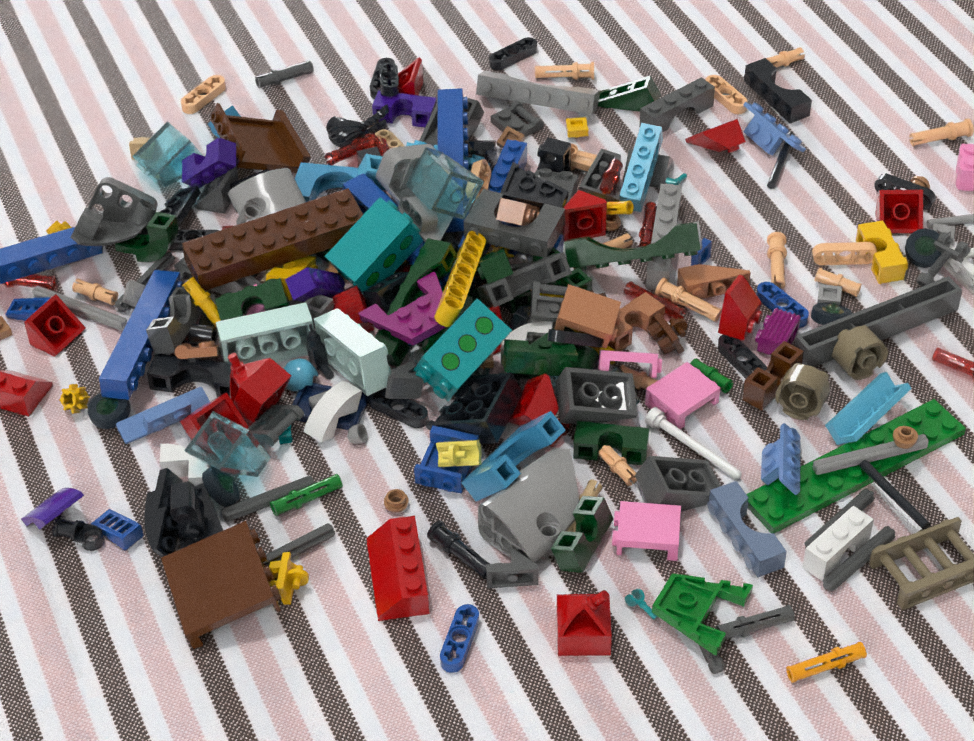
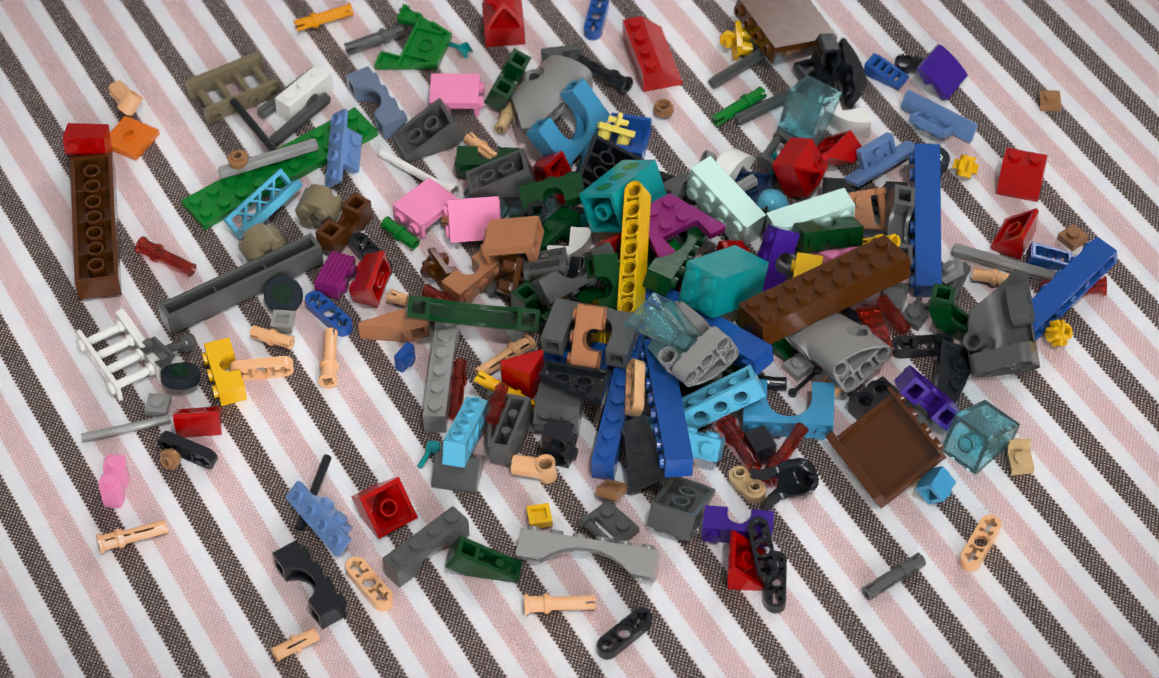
camera: 175 degrees right, 5 degrees up
(88, 455) = (936, 118): none -> medium blue bracket

